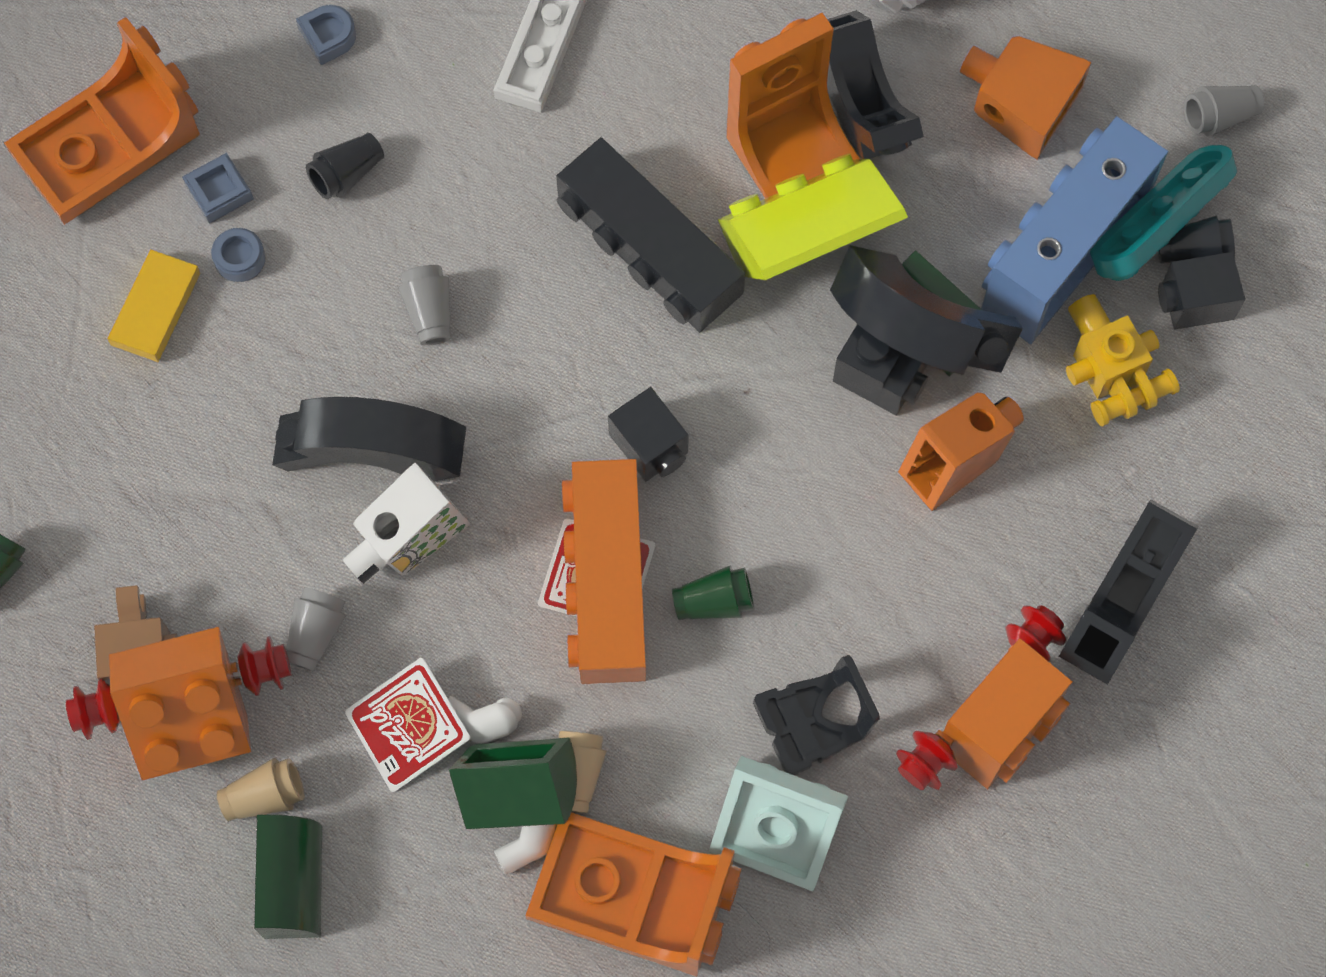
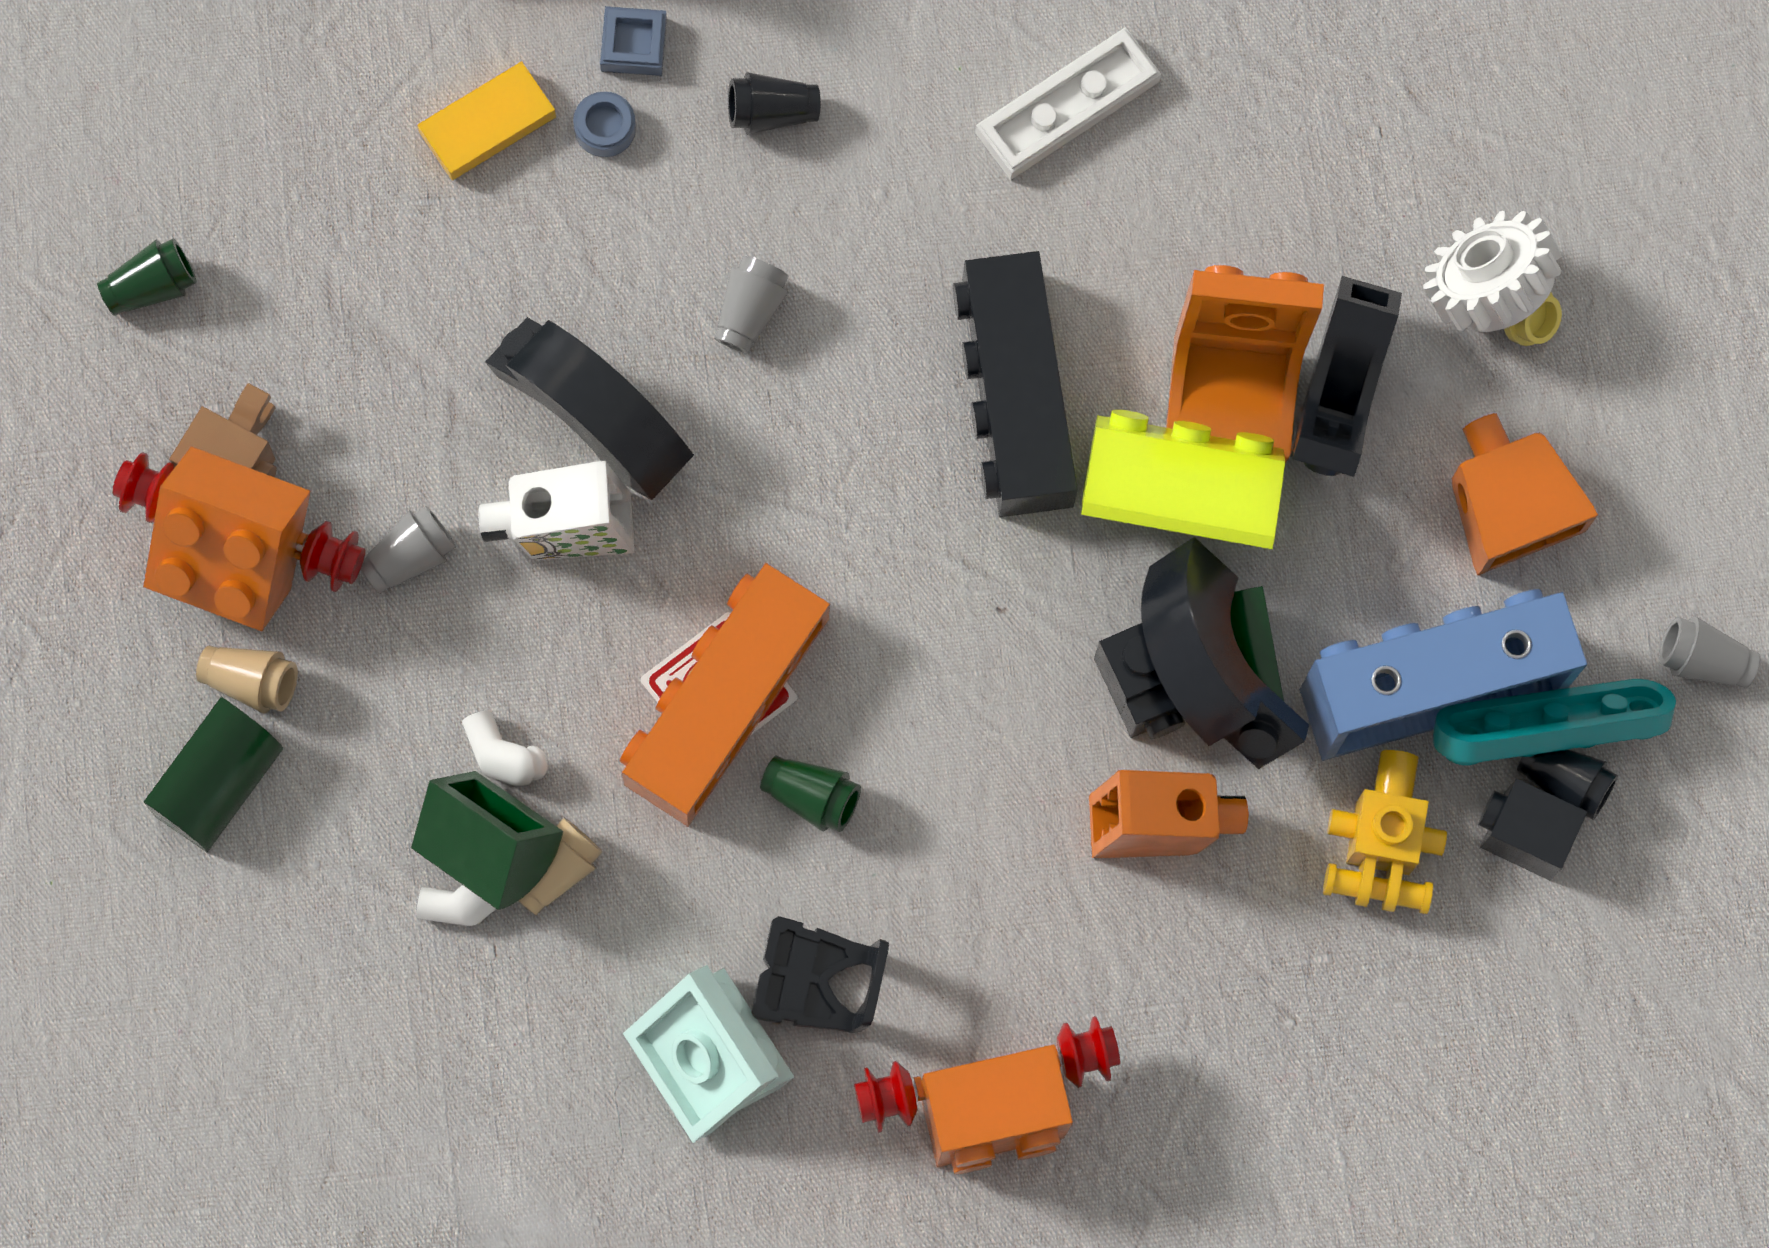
camera: 30 degrees right, 5 degrees up
(407, 724) = (429, 708): sticker -> none
(635, 893) = (521, 1022): orange bracket -> none
(649, 434) = (866, 588): black brick -> none
(1128, 592) = (1209, 1078): black arch -> none

